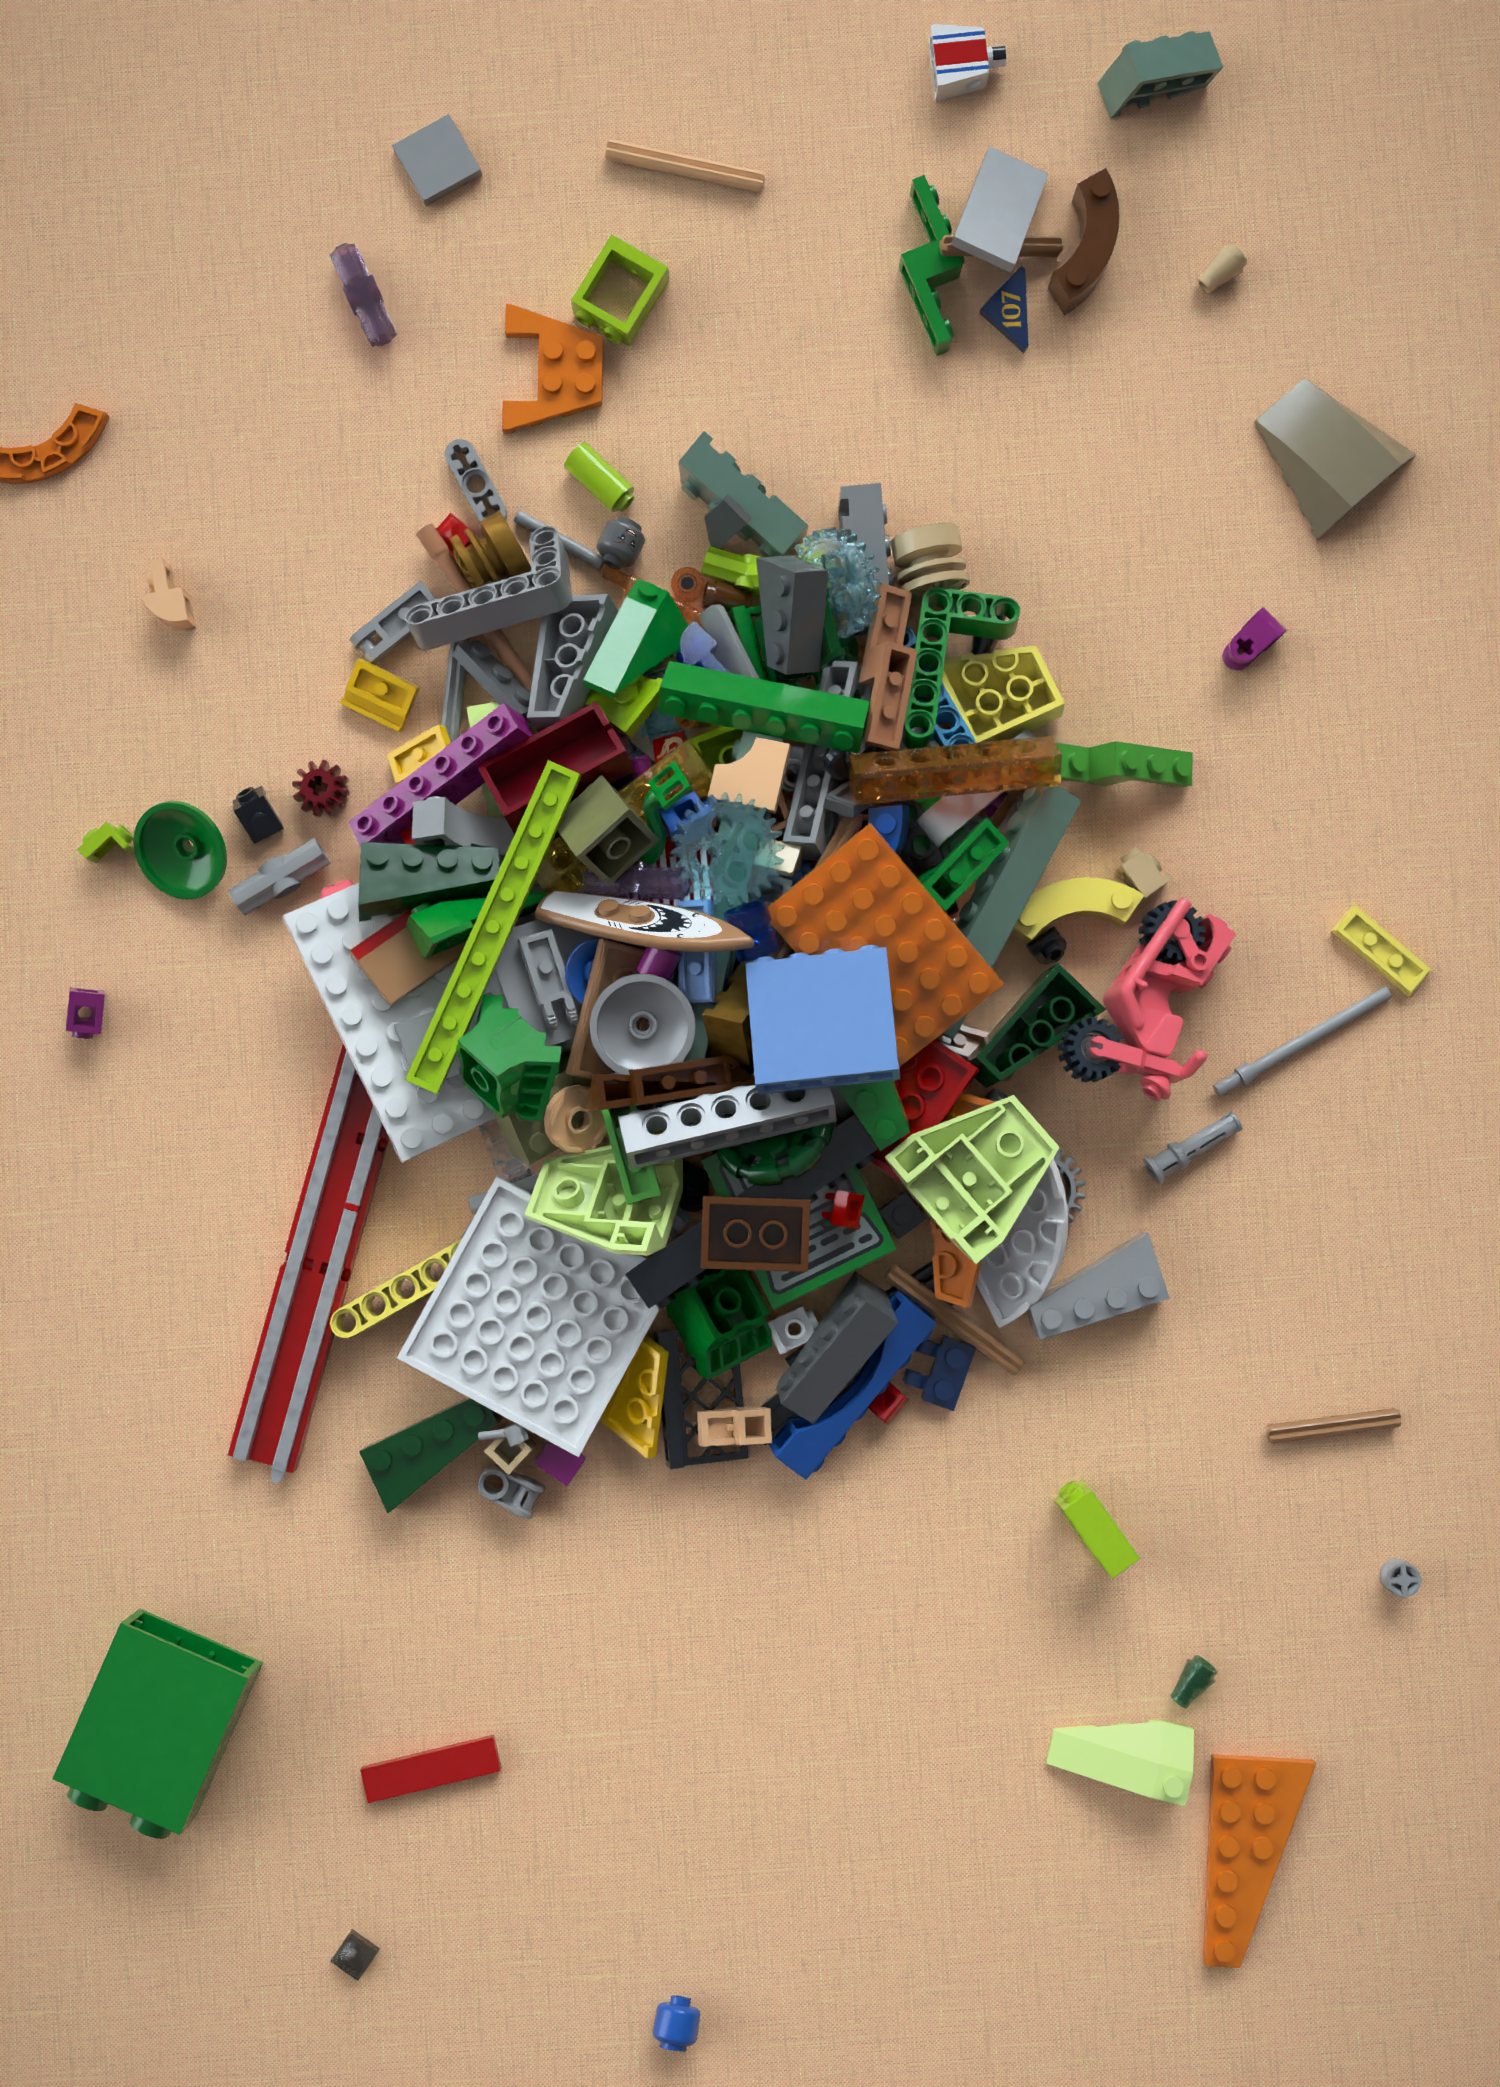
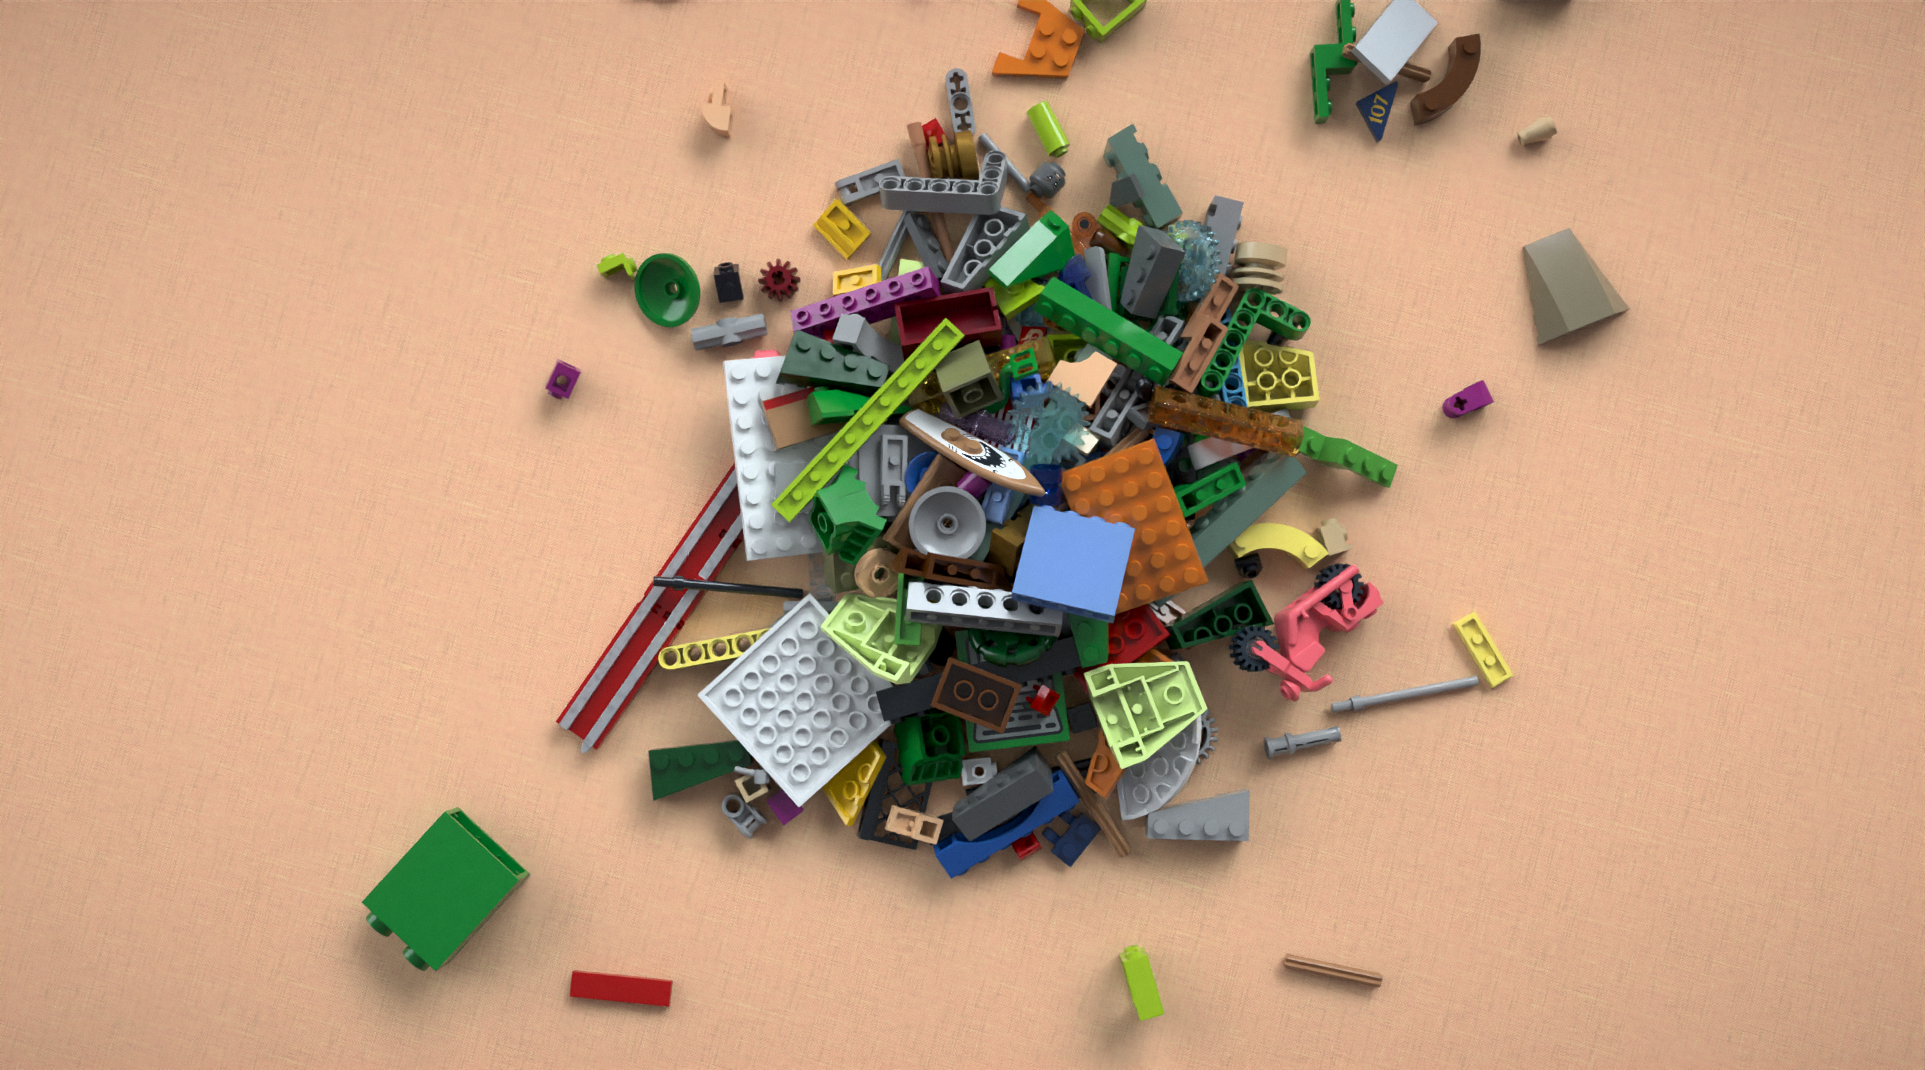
camera: 20 degrees right, 0 degrees up
(324, 1221) = (679, 583): none -> black bar

